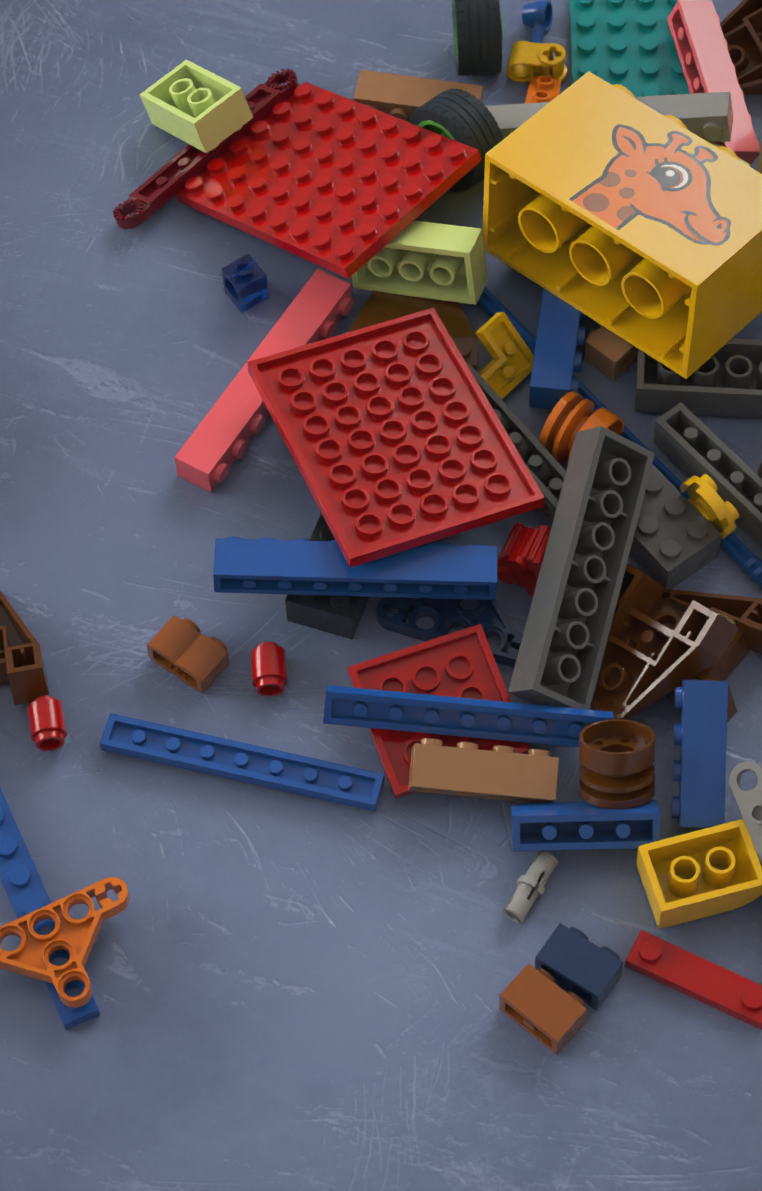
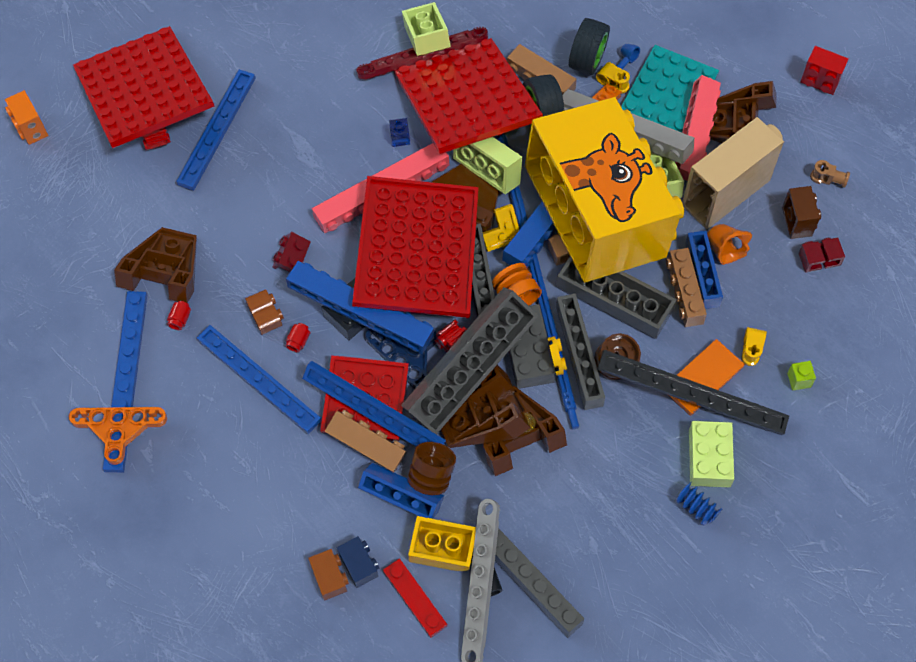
camera: 25 degrees right, 5 degrees up
(176, 544) = (292, 249): none -> dark red bracket
(530, 886) = (359, 509): light grey pin -> none
(702, 753) = (476, 483): blue brick -> none

